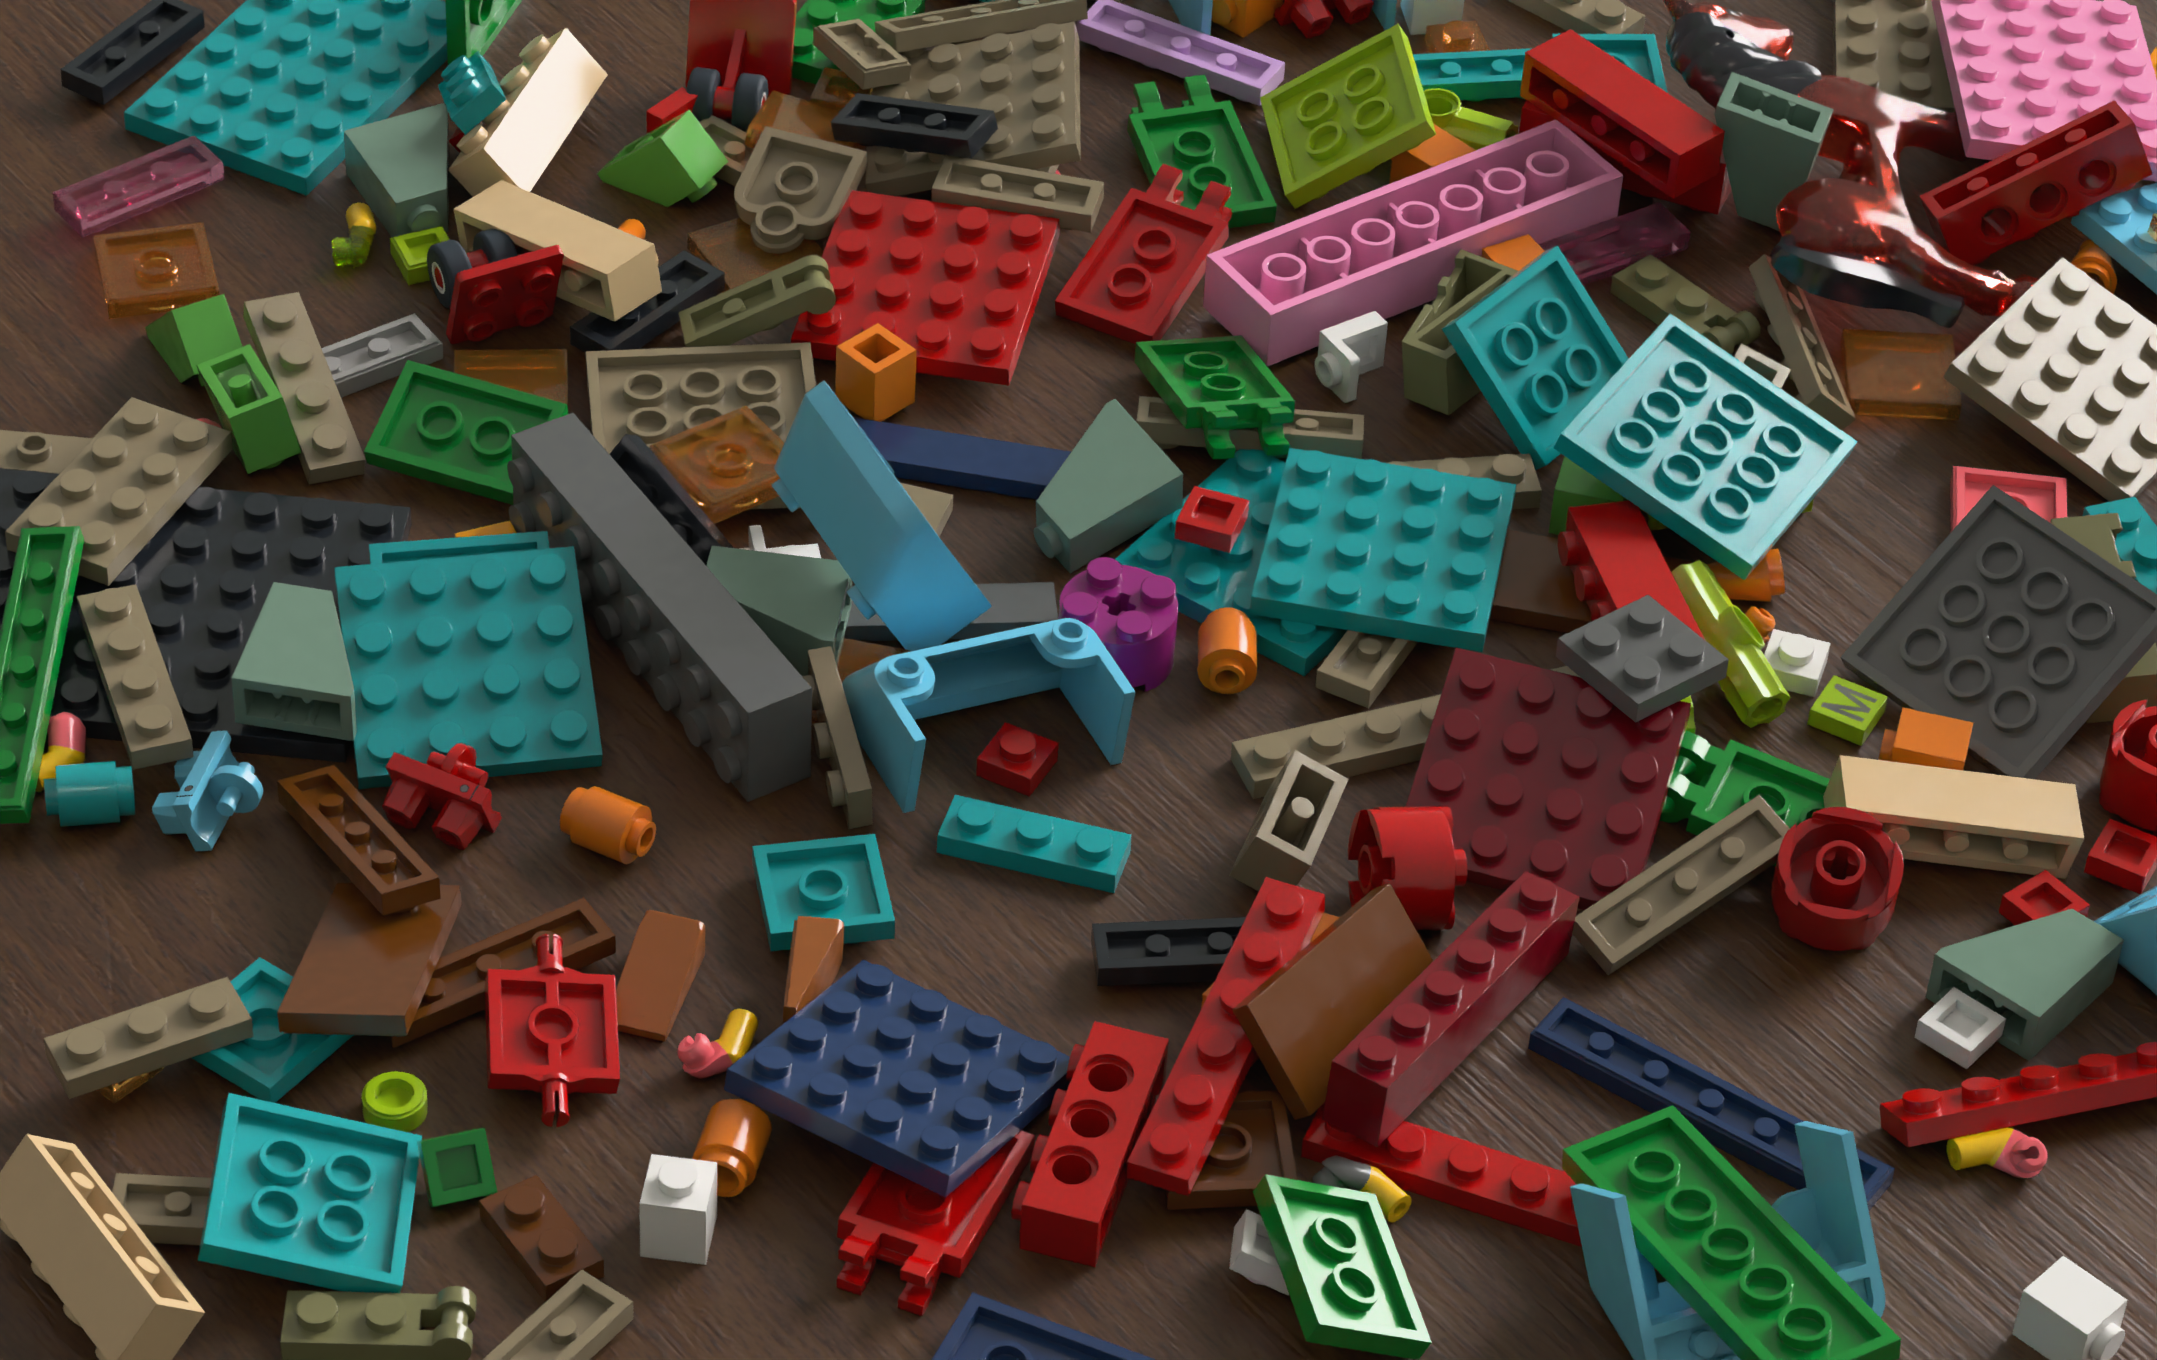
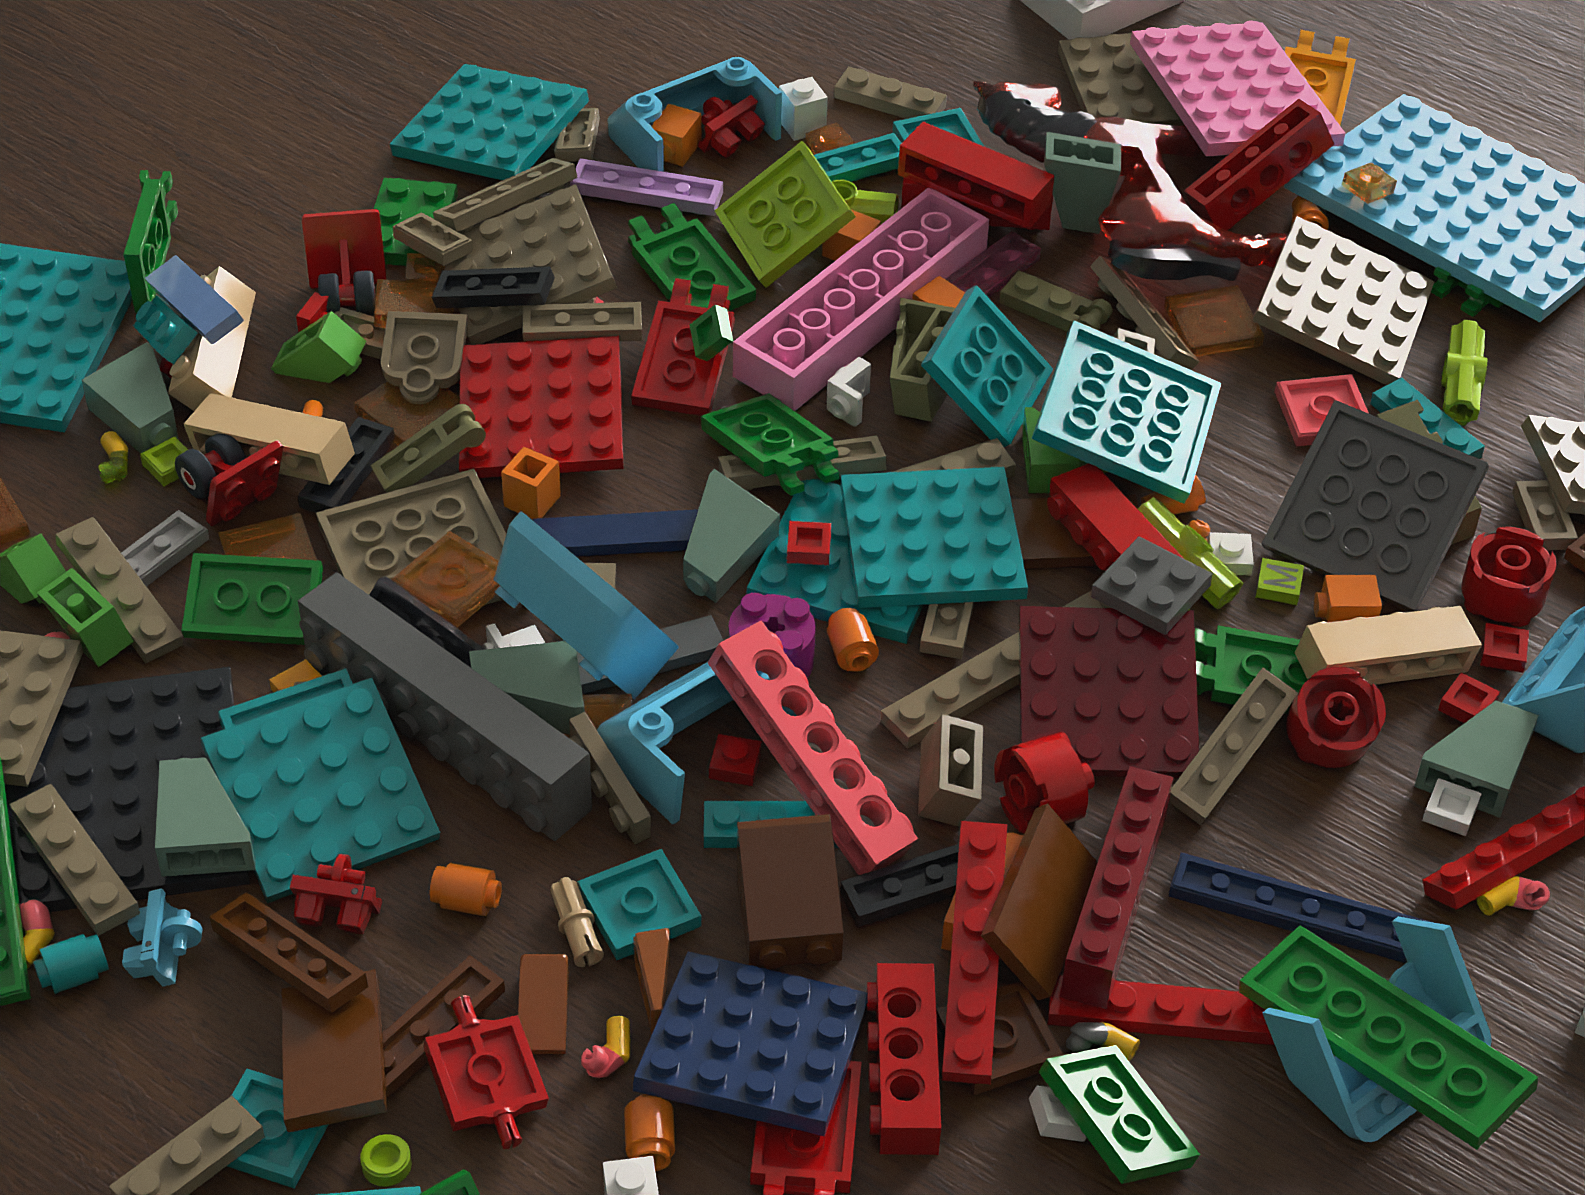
camera: 15 degrees left, 5 degrees up
(517, 60) = (194, 299): none -> medium blue tile
(734, 895) = (576, 922): none -> tan axle
(1016, 914) = (789, 891): none -> reddish brown slope
(1069, 612) = (810, 771): none -> coral brick
(1183, 239) = (711, 332): none -> green plate

